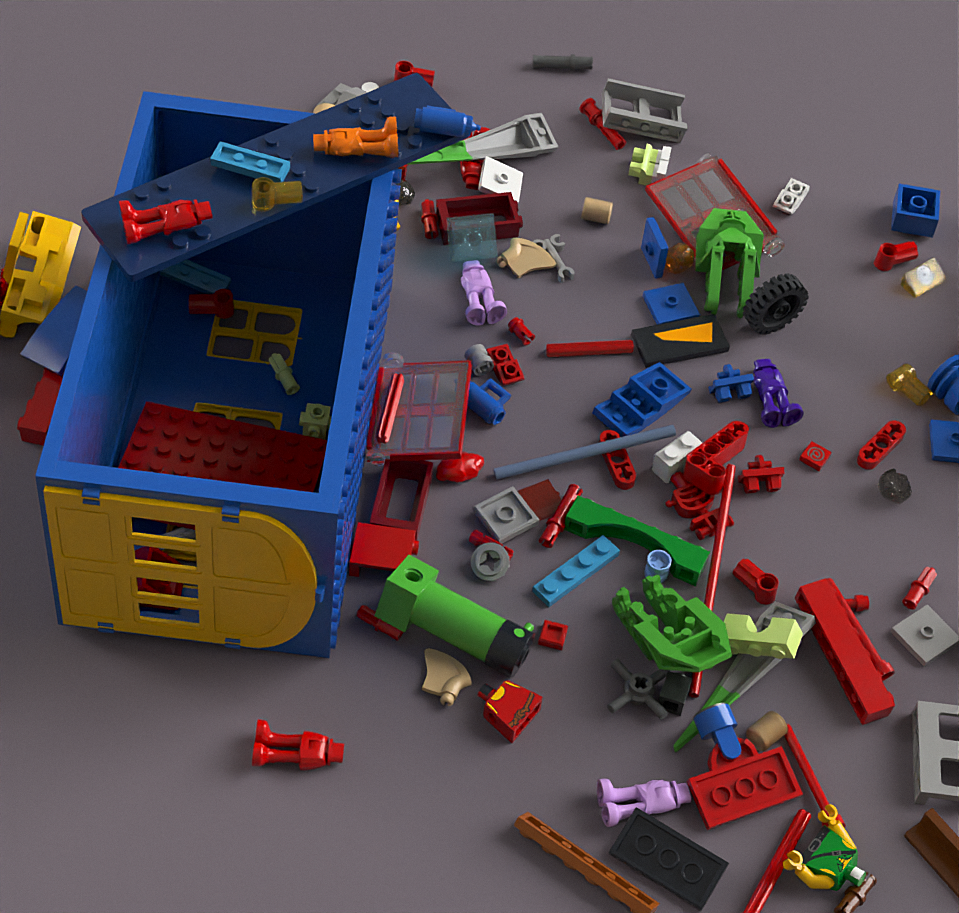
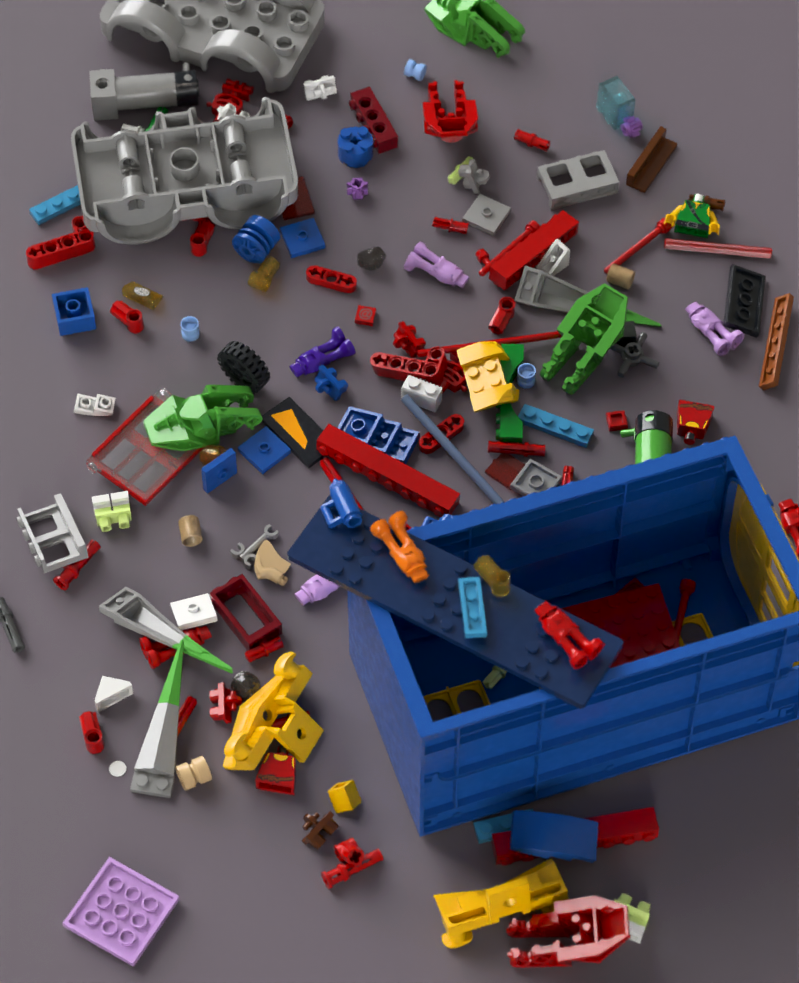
camera: 110 degrees left, 5 degrees up
(226, 41) = (121, 911): none -> lavender plate
(450, 94) = (111, 692): none -> white slope
(472, 237) = (281, 599): clear light blue brick -> none
(480, 557) = (582, 467): light grey gear -> none
(584, 385) = (387, 471): none -> red brick
(664, 513) = (486, 375): none -> yellow piece
(738, 776) = (661, 280): red plate -> none
(777, 640) = (559, 277): yellowish green arch -> none
(822, 672) = (555, 258): none -> white slope
(850, 551) = (442, 269): none -> lavender piece
(857, 296) = (190, 328): none -> light blue wheel

